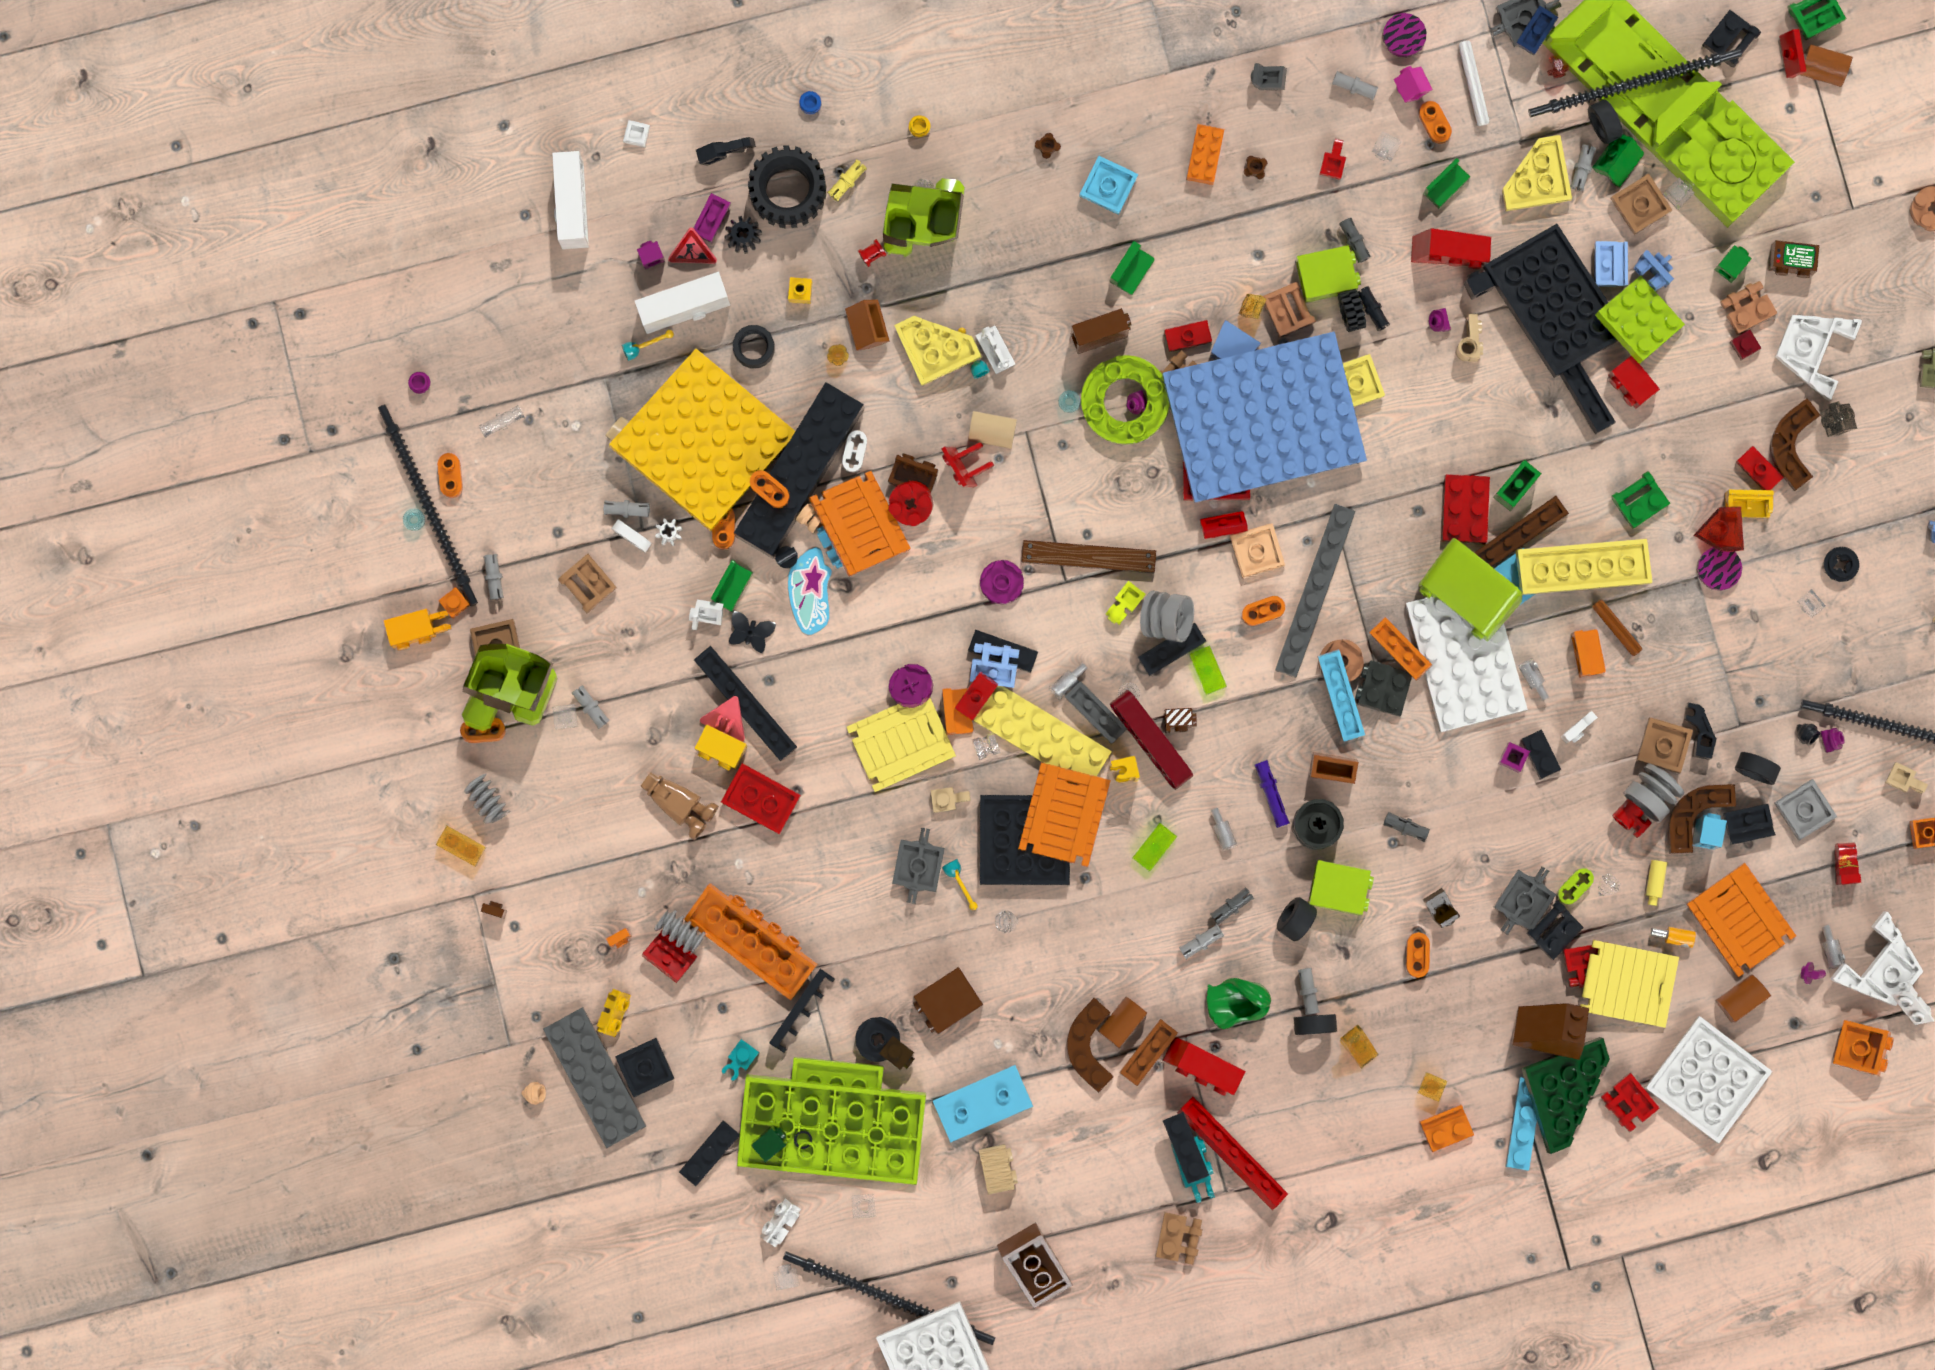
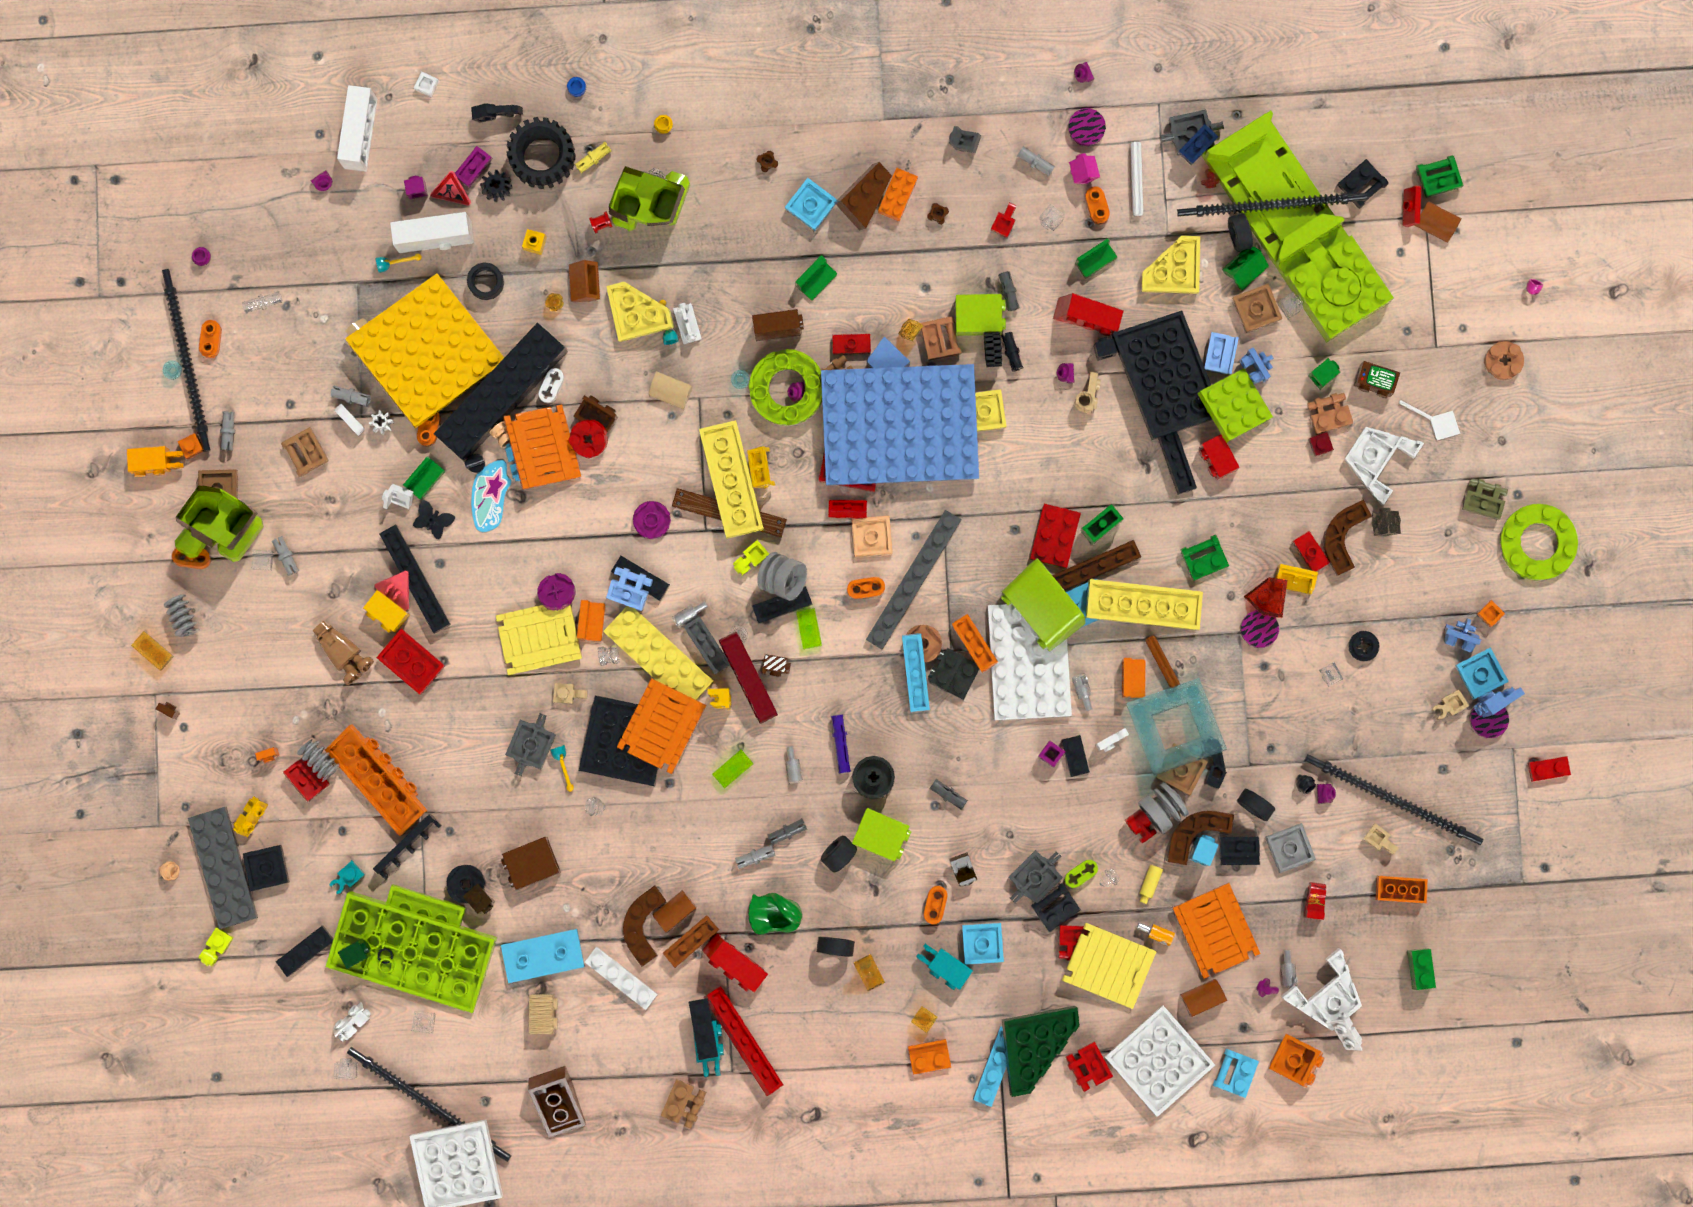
camera: 15 degrees right, 0 degrees up
(541, 268) = (322, 181): none -> magenta plate
(608, 1163) = (219, 943): none -> neon yellow plate
(770, 488) = (469, 403): orange plate -> none
(953, 458) = (635, 424): red plate -> none
(976, 696) = (608, 611): red plate -> none
(1077, 1110) = (621, 978): none -> white plate
(1084, 517) = (731, 479): none -> light yellow plate
(1114, 497) = (759, 467): none -> yellow hinge
(1168, 163) = (864, 195): none -> reddish brown wedge
(1308, 991) = (836, 916): light grey pin -> none
(1334, 768) = (897, 732): dark orange brick -> none
(1446, 1023) = (947, 967): none -> teal hinge
(1480, 987) = (982, 943): none -> medium azure plate
(1552, 1028) = (1034, 991): reddish brown slope -> none
(1583, 167) = (1214, 268): light grey pin -> none
(1656, 657) = (1186, 693): none -> clear light blue plate
(1803, 1079) = (1241, 1076): none -> medium azure plate
(1879, 295) = (1443, 424): none -> white piece

